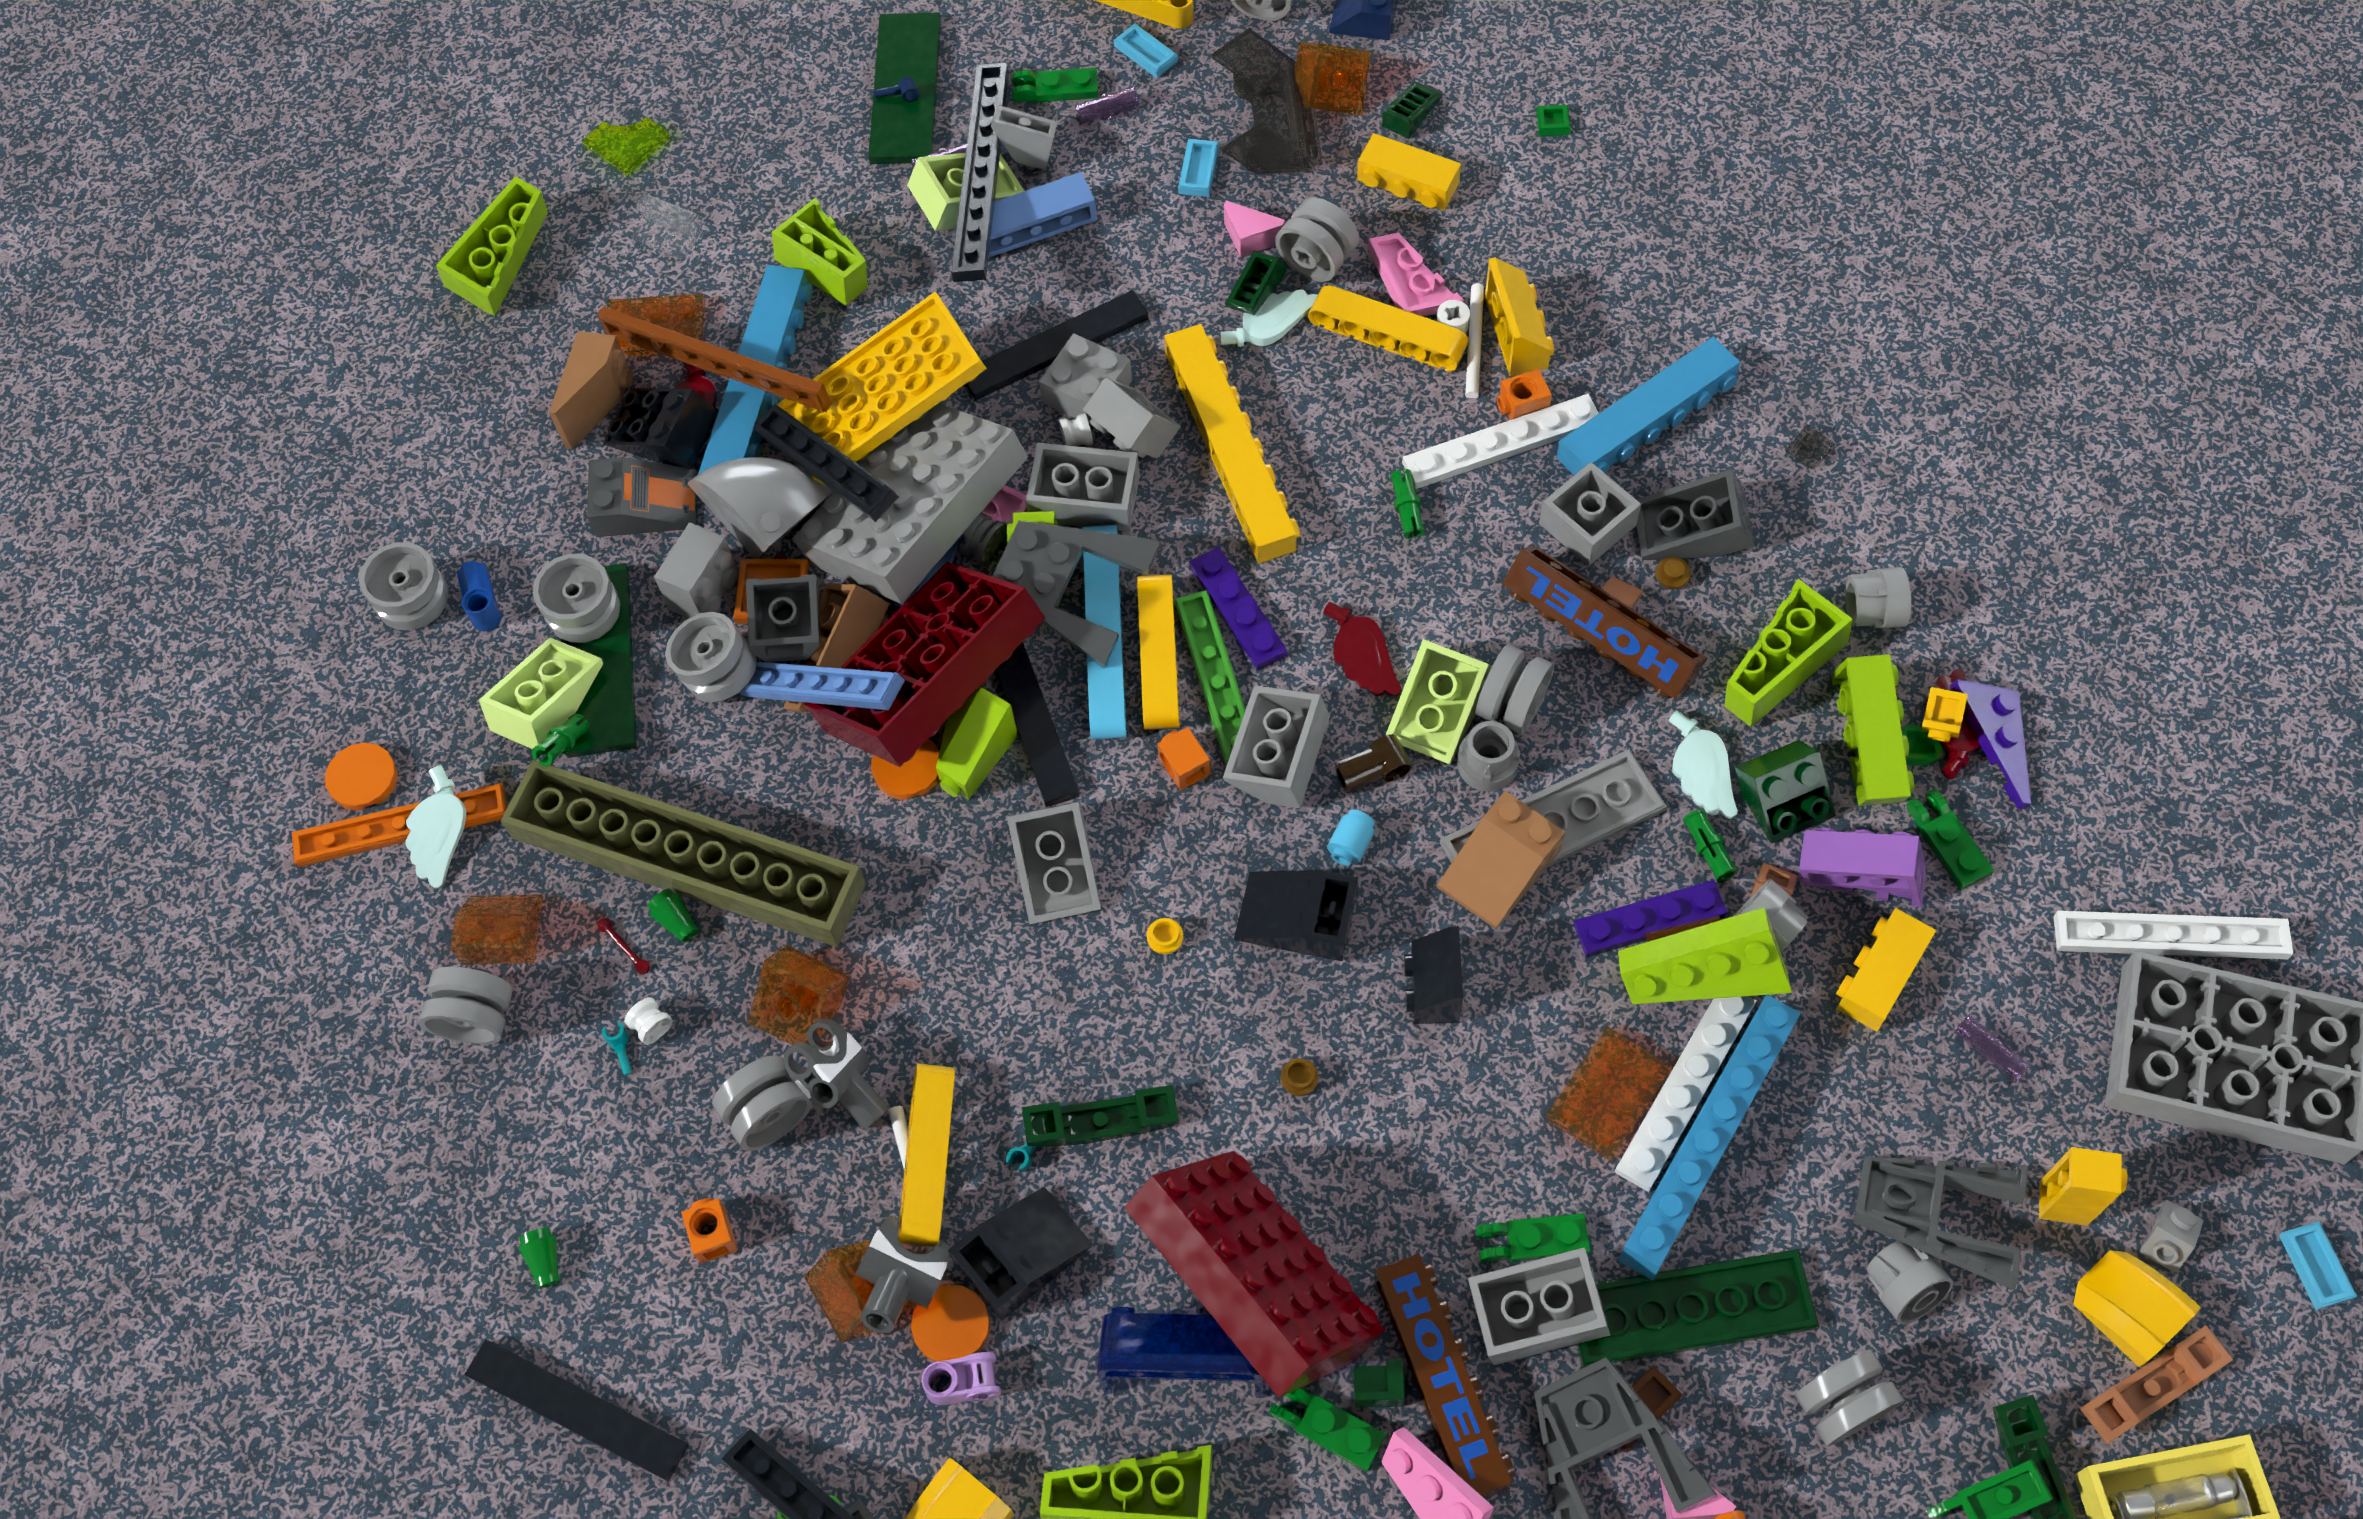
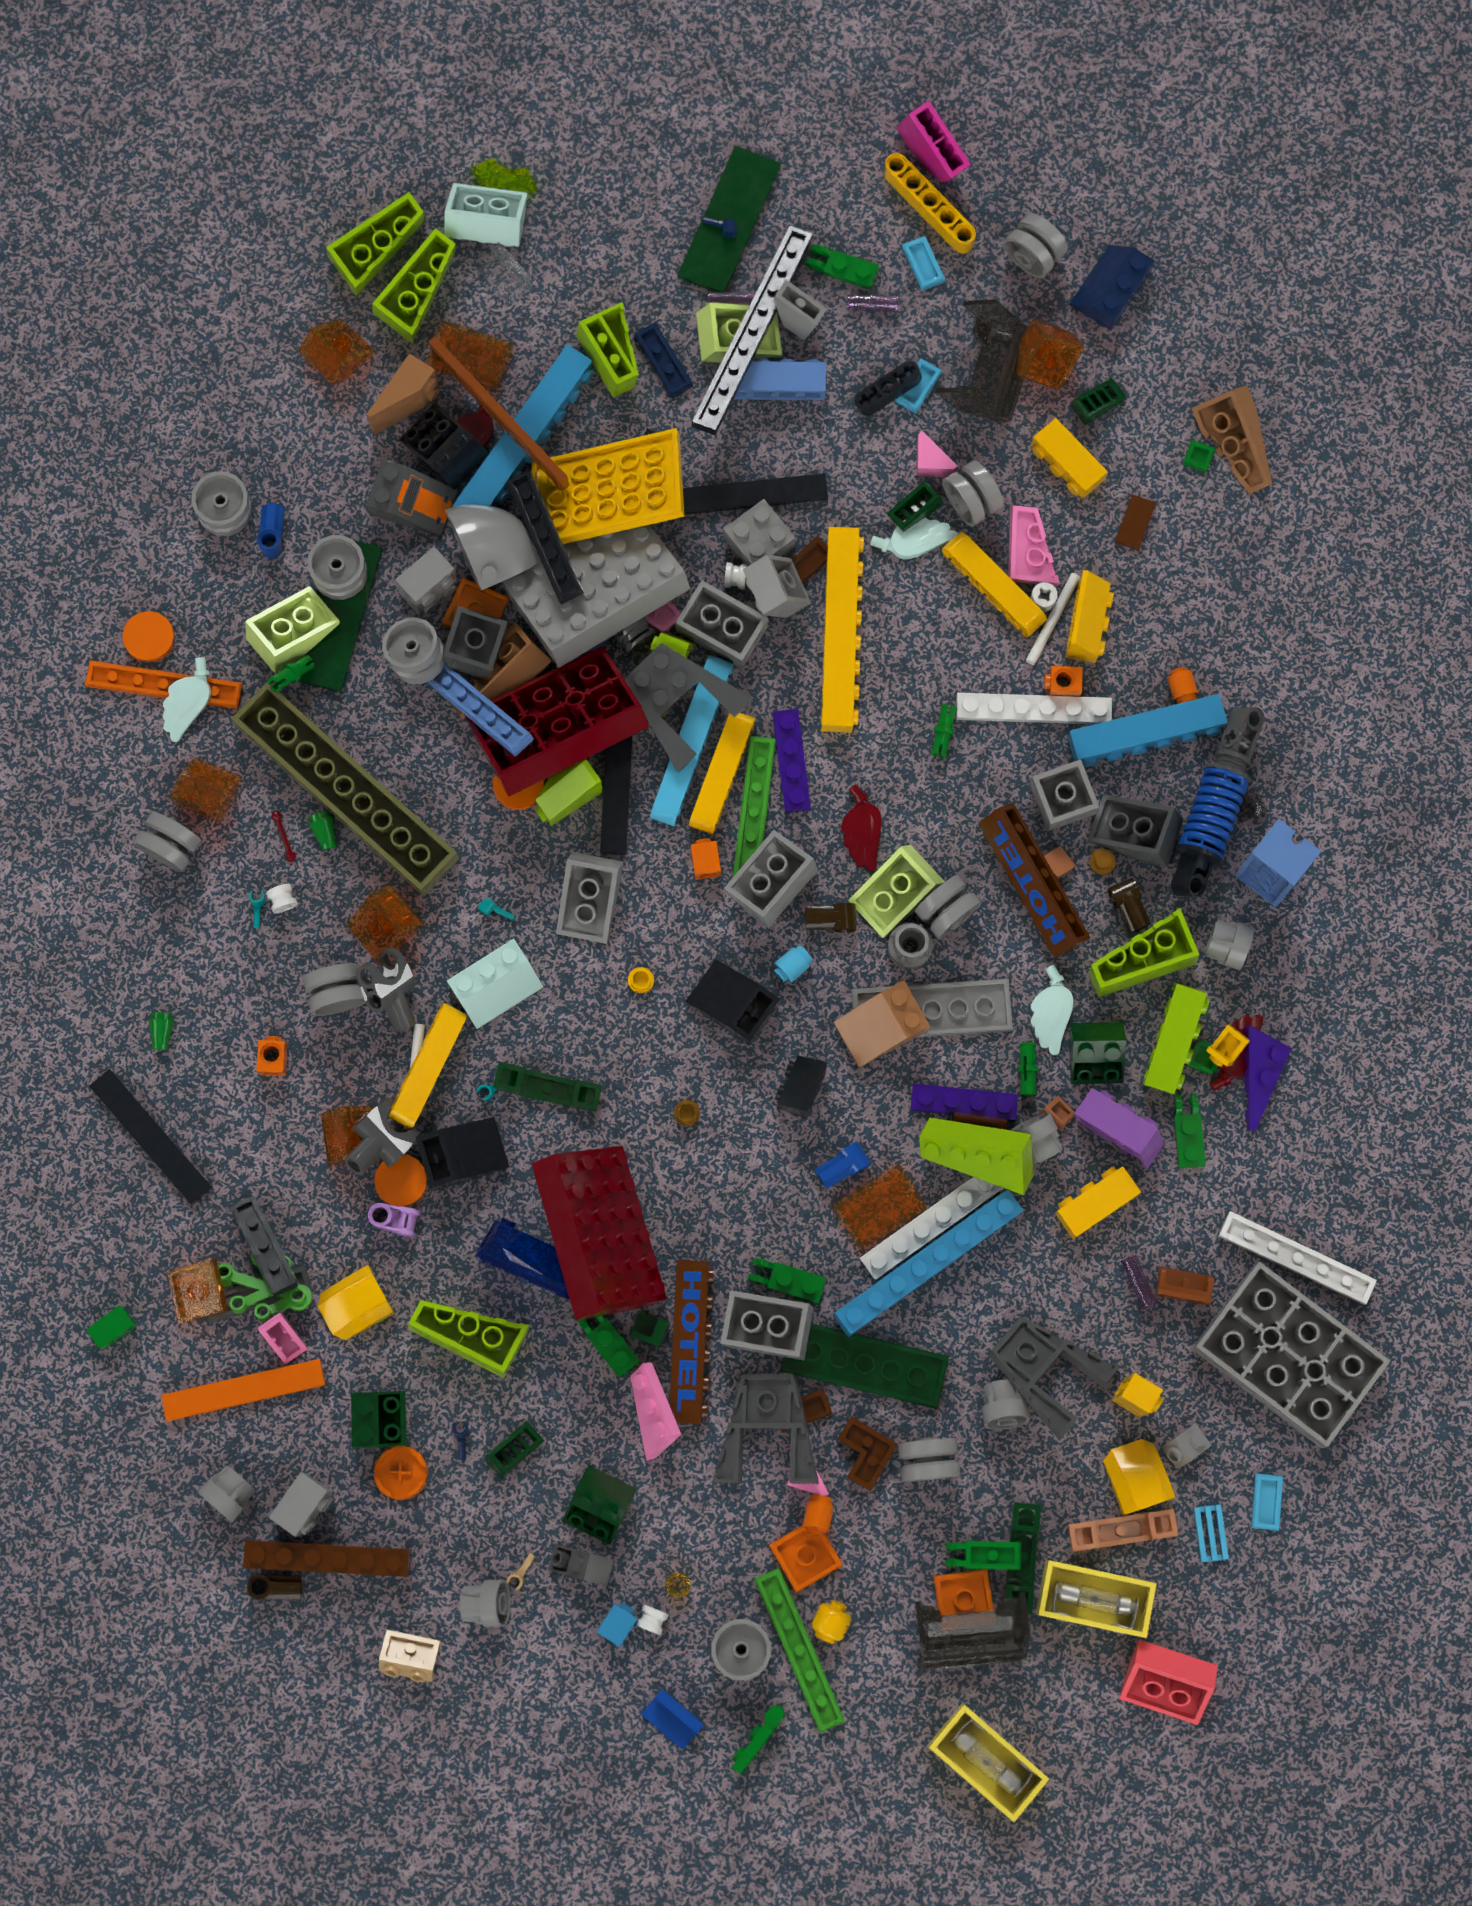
camera: 15 degrees right, 15 degrees up
(487, 376) = (335, 350): none -> clear orange slope
(560, 274) = (412, 290): none -> lime wedge
(616, 177) = (485, 214): none -> light aqua slope
(889, 248) = (663, 360): none -> dark blue tile
(927, 923) = (488, 906): none -> teal hand
(974, 1014) = (495, 983): none -> light aqua slope
(1154, 196) = (890, 378): none -> black beam
(1159, 383) = (810, 559): none -> reddish brown tile
(1517, 209) = (1135, 522): none -> reddish brown tile
(1538, 1055) = (847, 1163): none -> blue piece
(1581, 78) = (1236, 430): none -> medium nougat wedge
(1662, 347) = (1182, 685): none -> orange brick
(1725, 600) = (1128, 901): none -> dark brown piece
(1764, 1420) = (873, 1449): none -> reddish brown plate
(1777, 454) = (1217, 803): none -> piece
(1891, 476) = (1277, 863): none -> medium blue piece
(2053, 1029) = (1184, 1286): none -> dark orange hinge
(2281, 1330) = (1221, 1532): none -> medium azure tile

